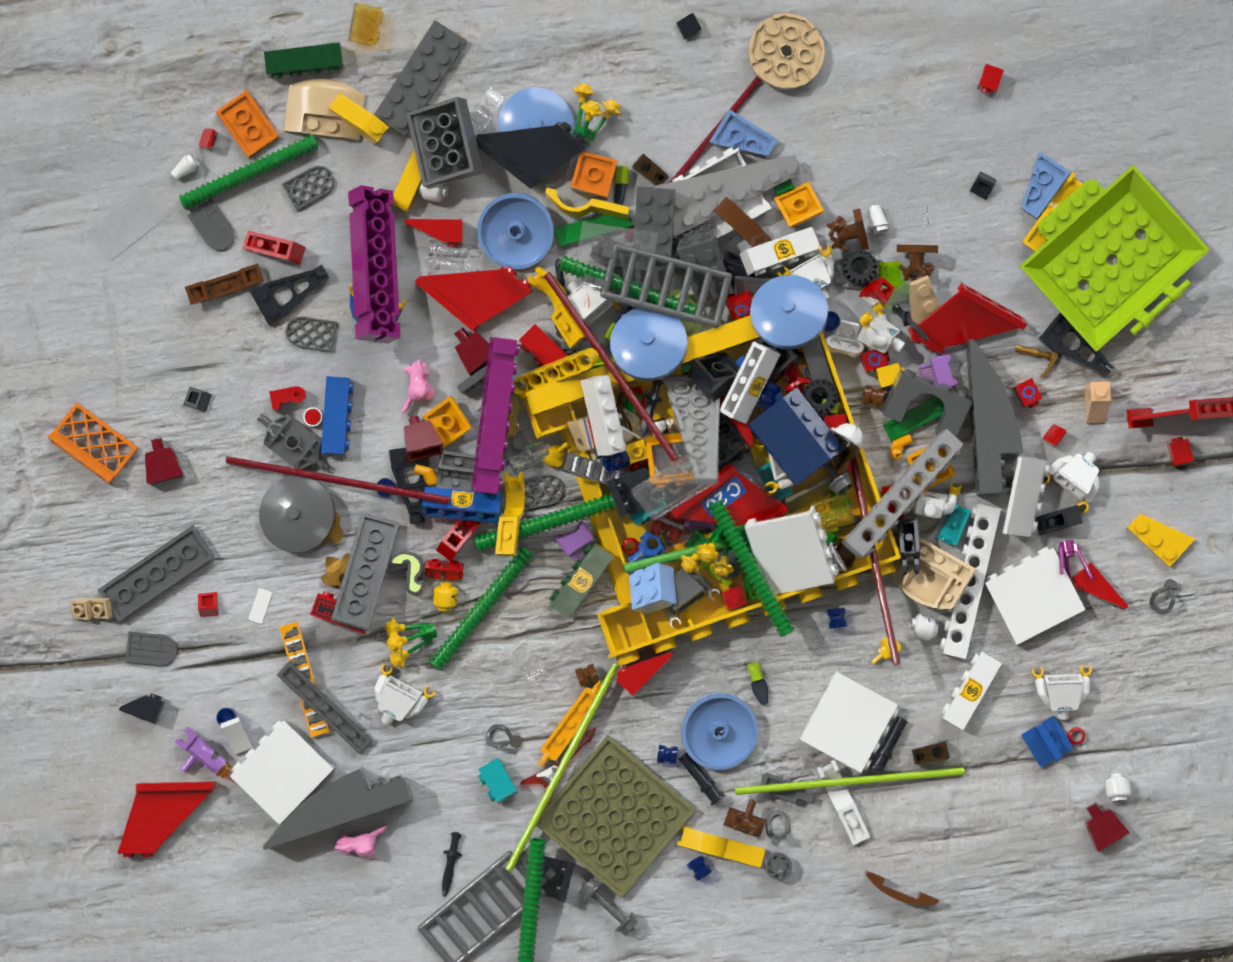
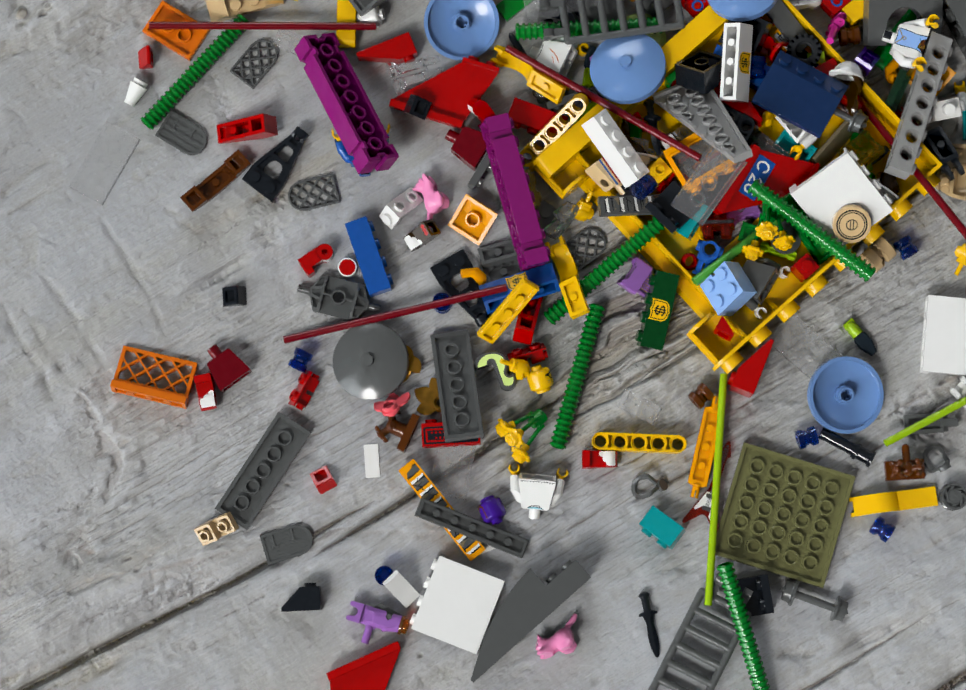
camera: 20 degrees left, 5 degrees down
(134, 478) = (205, 391): none -> red leg
(228, 508) = (299, 396): none -> red hinge
(236, 482) = (303, 356): none -> clear blue wheel
(296, 587) = (399, 429): none -> reddish brown piece
(297, 564) = (392, 404): none -> coral plate
(328, 156) = (266, 25): none -> dark red piece
(350, 698) = (492, 510): none -> dark purple head
(385, 381) = (400, 207): none -> white bracket
(393, 416) = (422, 235): none -> dark brown leg
(421, 440) = (457, 245): dark red torso -> none
(429, 577) = (518, 366): none -> yellow piece
(439, 295) = (417, 106): none -> black slope
(442, 522) = (508, 310): none -> yellow tile
(468, 693) = (599, 459): none -> red leg
(498, 323) = (480, 109): none -> red leg
(501, 694) = (647, 439): none -> yellow beam
(630, 625) = (724, 330): none -> red slope
(790, 578) = (851, 223): none -> tan tile
(808, 614) = (879, 253): none -> tan wheel
(862, 382) = (836, 23): none -> dark pink piece
(875, 428) = (866, 61): none -> dark purple slope
(892, 469) = (897, 89): none -> clear green slope
(922, 429) = (910, 41): none -> torso

